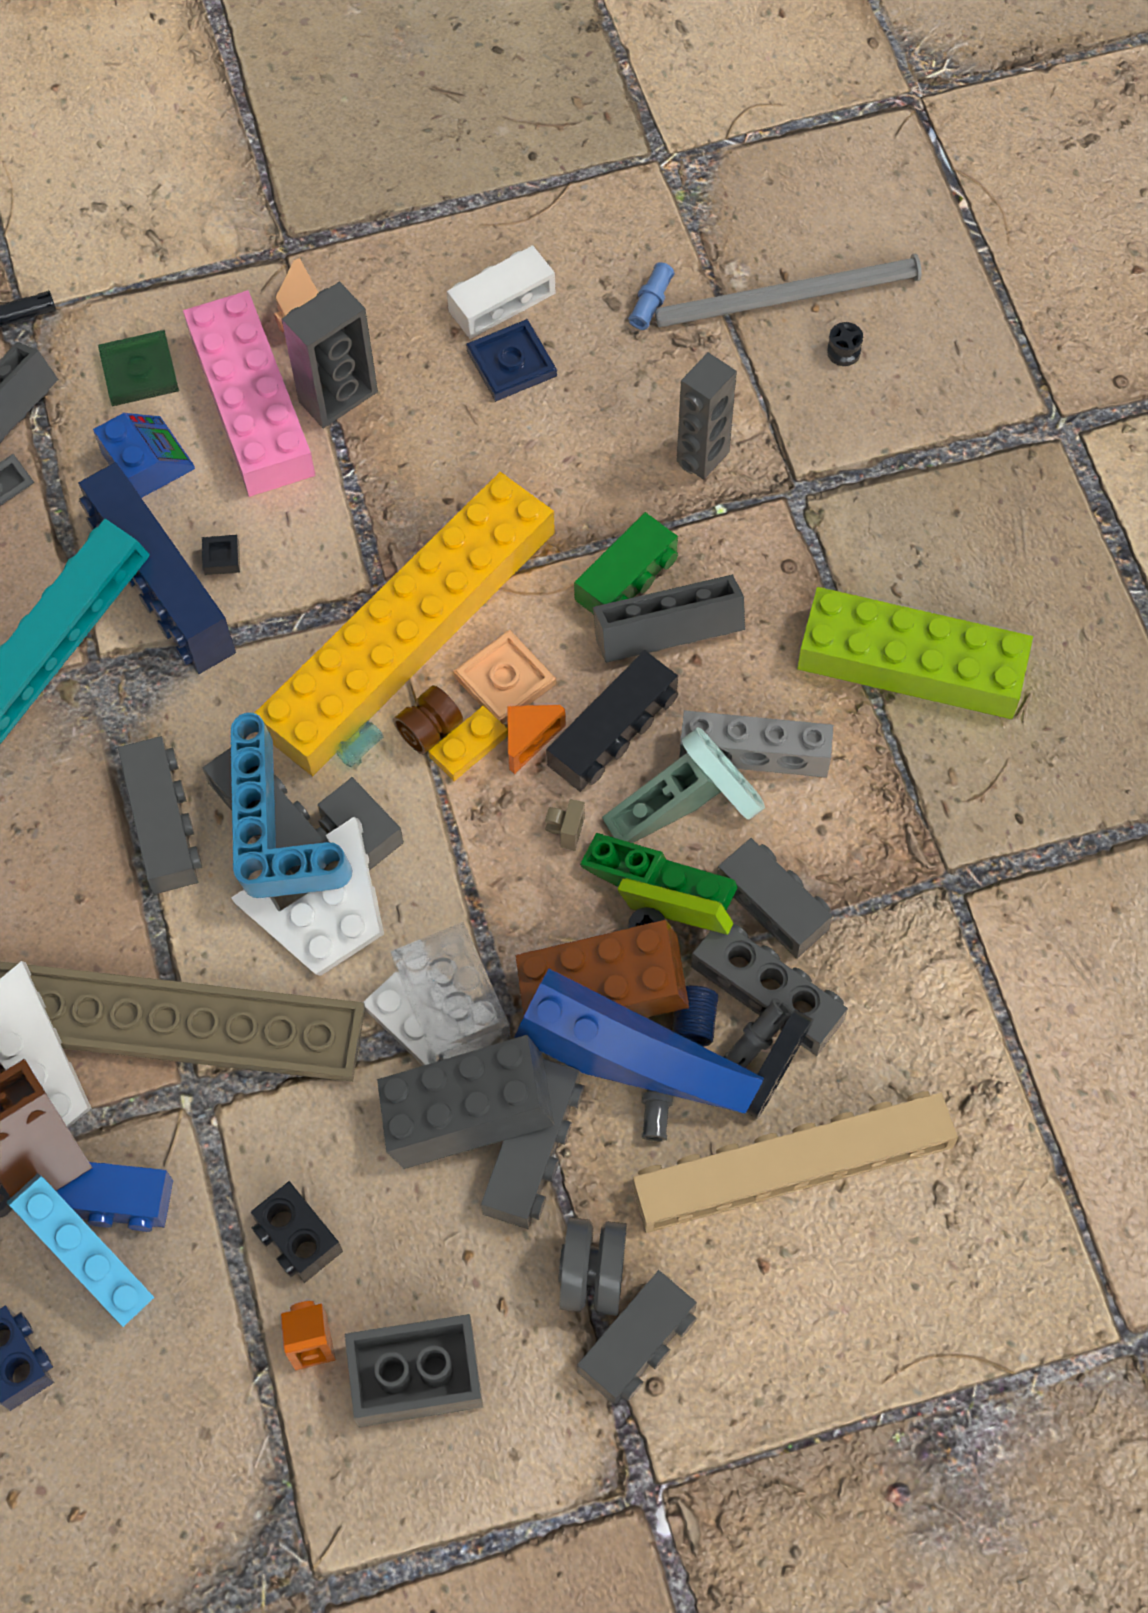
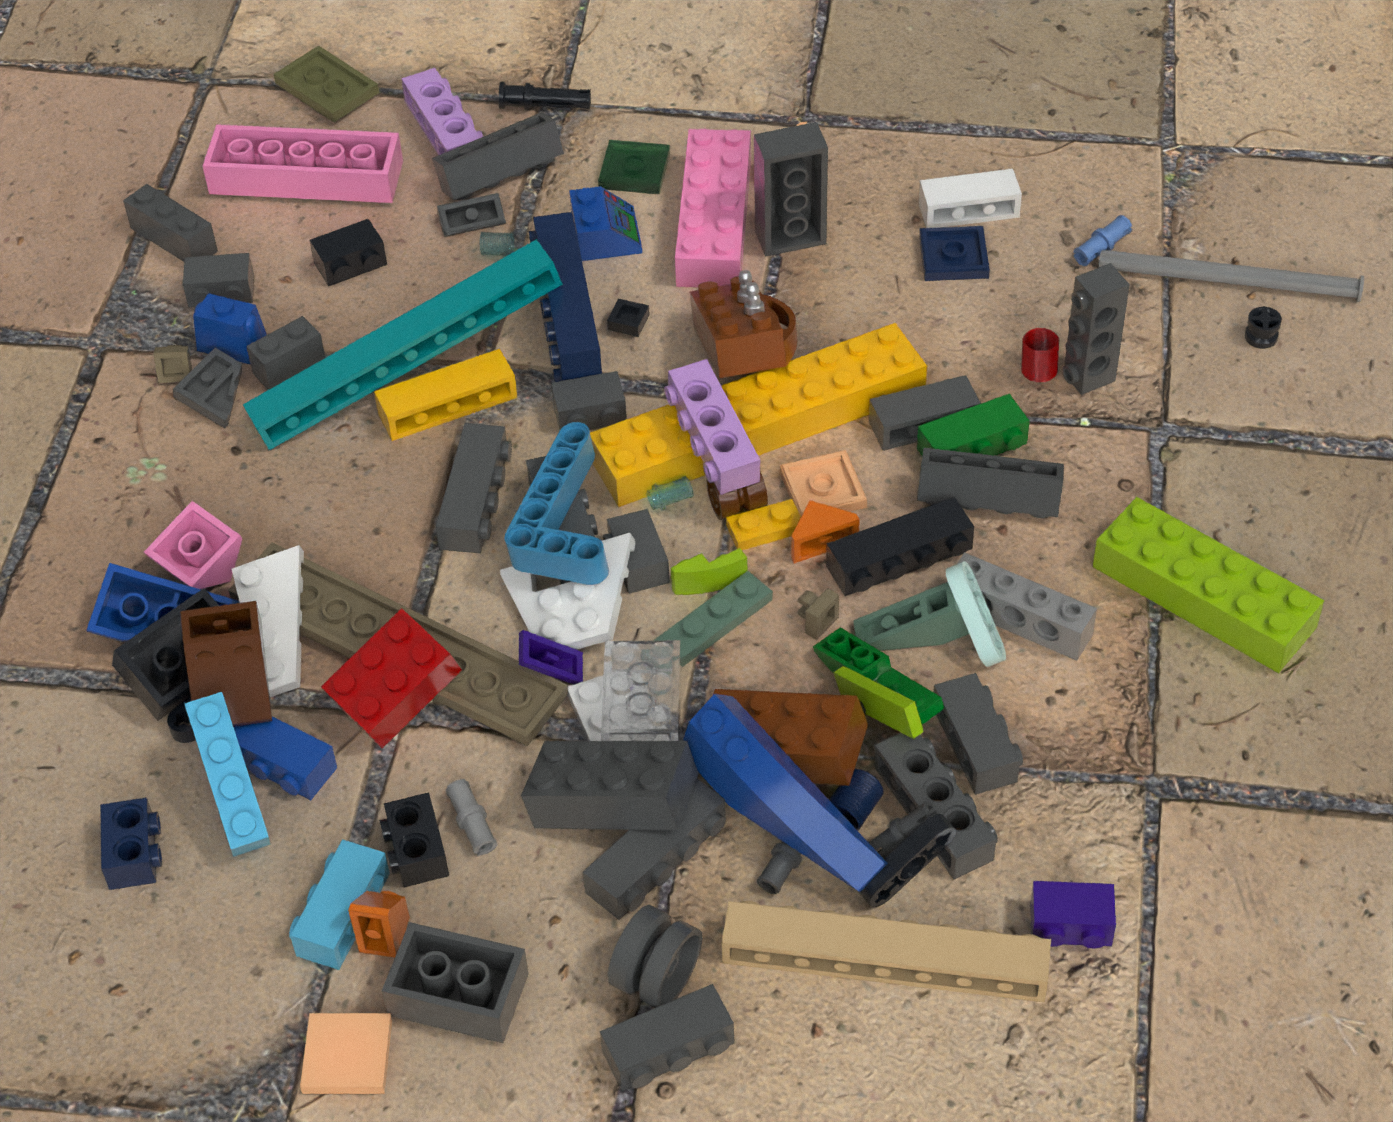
camera: 25 degrees right, 15 degrees down
(40, 522) = (494, 249): none -> clear light blue piece
(76, 716) = (445, 394): none -> yellow brick
(189, 1071) = (391, 678): none -> red brick
(230, 671) = (589, 400): none -> dark grey brick
(254, 1333) = (325, 927): none -> medium azure brick
(334, 981) = (550, 658): none -> dark purple slope
(337, 1183) = (471, 817): none -> light grey pin
(339, 1484) = (346, 1053): none -> light nougat tile
(349, 622) = (713, 427): none -> lavender brick
(350, 533) = (743, 326): none -> dark orange piece
(434, 827) = (700, 576): none -> lime slope
(465, 871) = (718, 616): none -> sand green plate
(563, 558) = (899, 414): none -> dark grey brick
(650, 440) = (1040, 355): none -> red piece
(944, 1053) = (1073, 913): none -> dark purple brick

